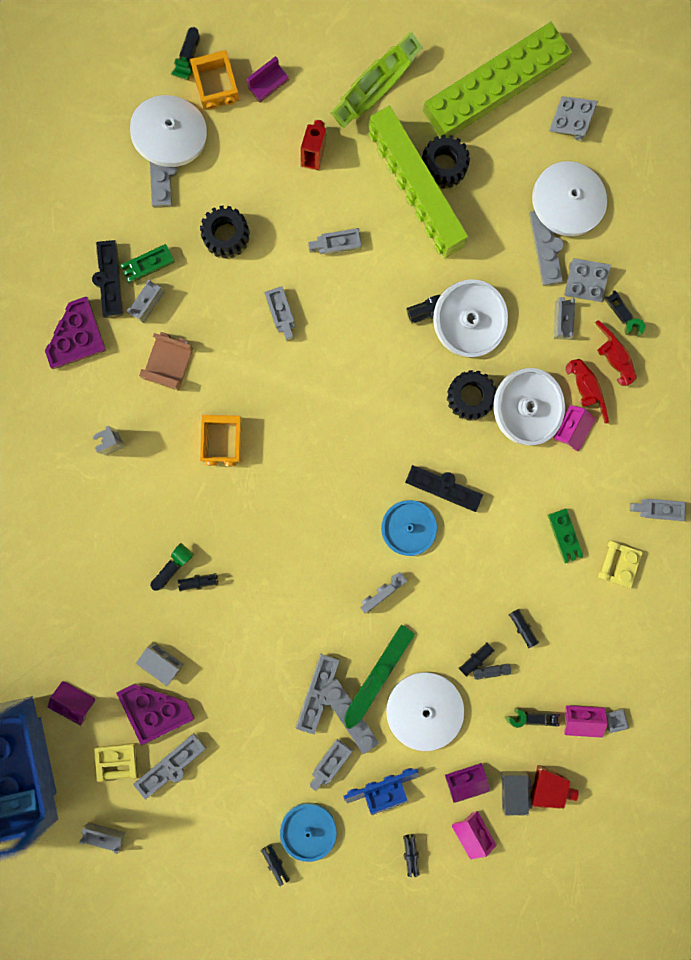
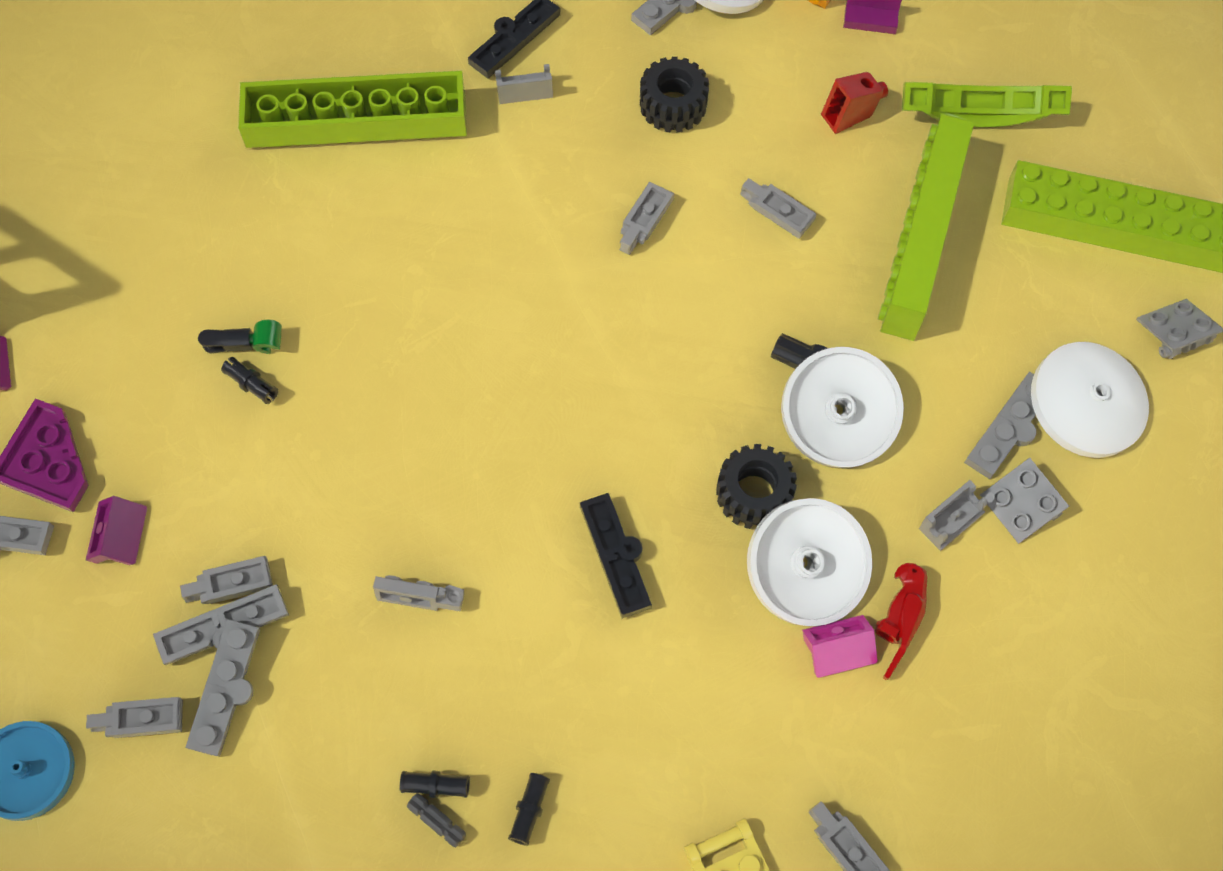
camera: 45 degrees right, 20 degrees down
(75, 335) = (421, 48): magenta plate -> none
(83, 403) = (352, 109): none -> lime brick
(111, 441) = (333, 162): light grey hinge -> none
(147, 263) = (566, 56): green hinge -> none
(159, 663) = (111, 417): light grey hinge -> none
(167, 361) = (479, 155): nougat panel -> none
(220, 420) = (430, 250): light orange window -> none
(224, 706) = (116, 531): none -> magenta panel
(299, 673) = (229, 581): none -> light grey hinge
(378, 676) = (304, 677): green piece -> none
(384, 794) = (152, 820): blue bracket -> none
(409, 528) = (529, 558): dark azure piece -> none
(420, 693) = (325, 806): white dish -> none
(448, 147) = (990, 220): black tyre -> none
(565, 535) = (698, 754): green hinge -> none
(617, 356) = (975, 617): red animal -> none
(624, 314) = (1032, 582): black piece -> none

